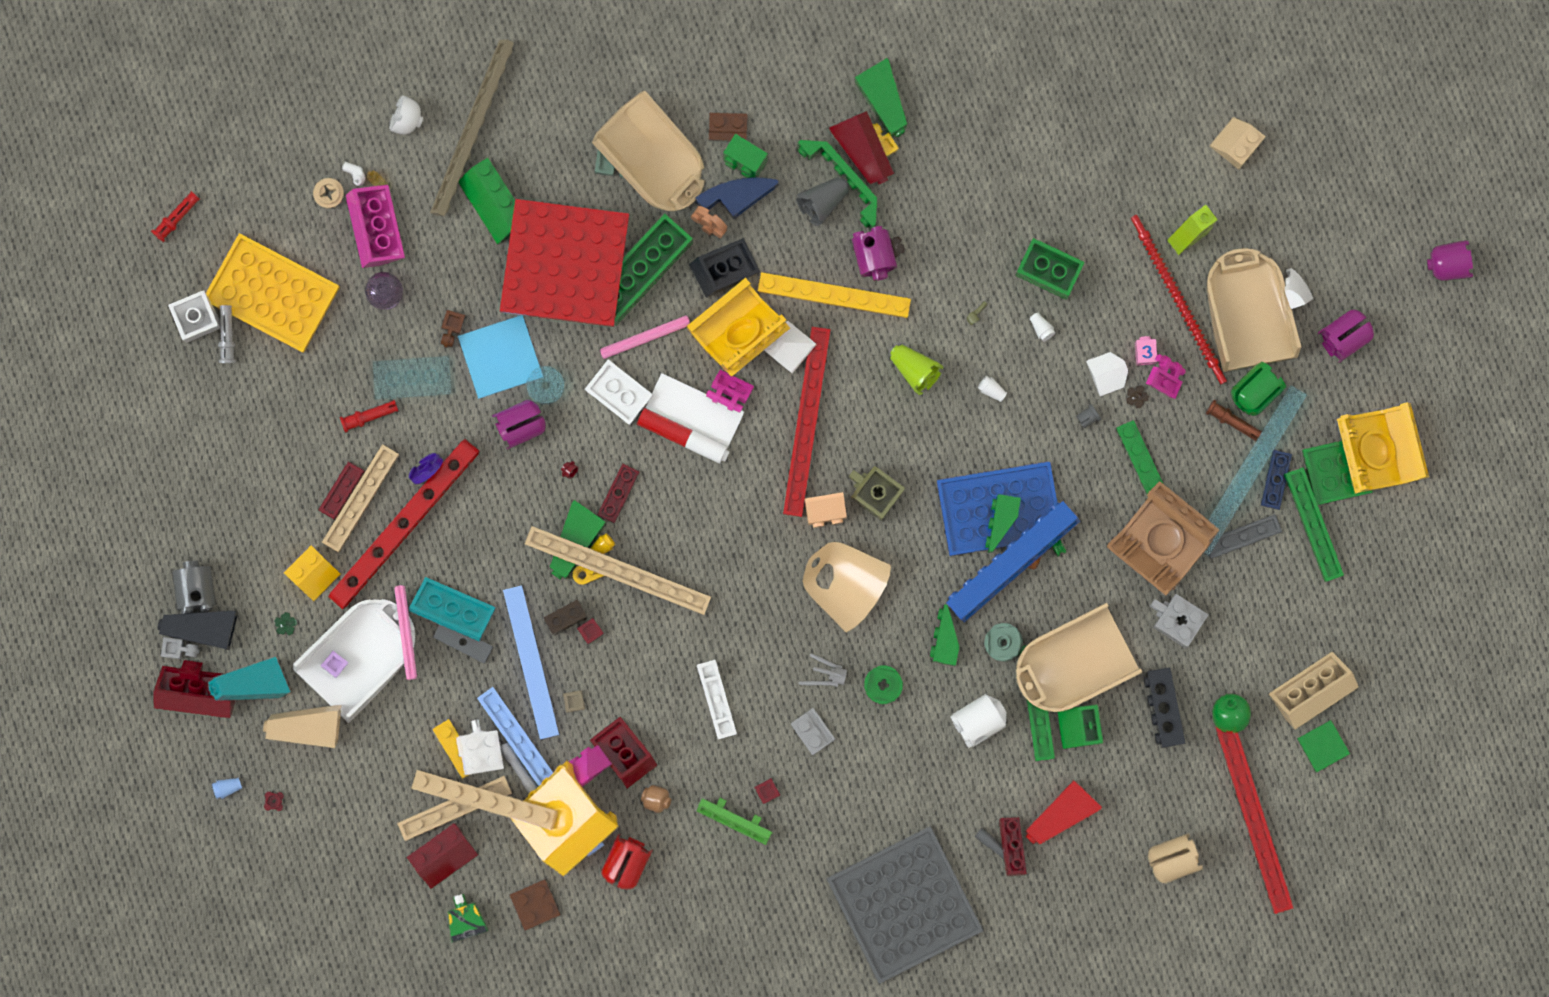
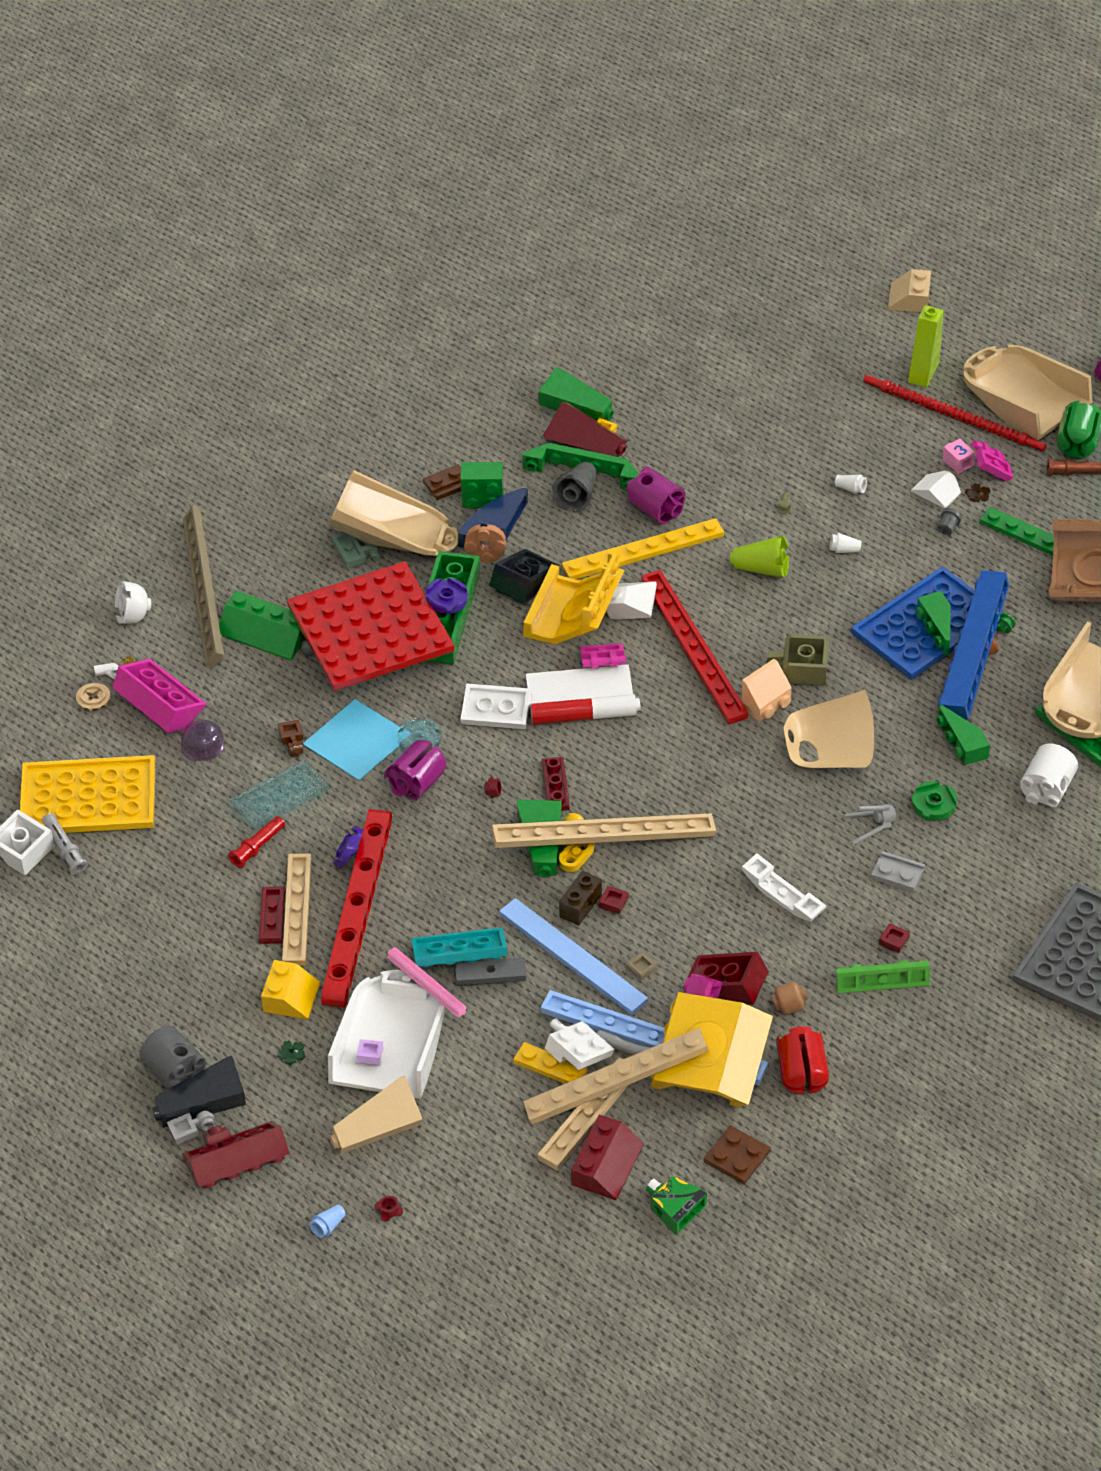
camera: 30 degrees left, 35 degrees down
(255, 681) = (292, 1103): teal slope -> none
(638, 260) = (446, 595): none -> dark purple plate
(645, 337) = (488, 658): bright pink axle -> none
(994, 640) = (1015, 705): sand green plate -> none
(1049, 269) = (823, 438): green brick -> none
(1296, 289) = (1055, 352): white slope -> none

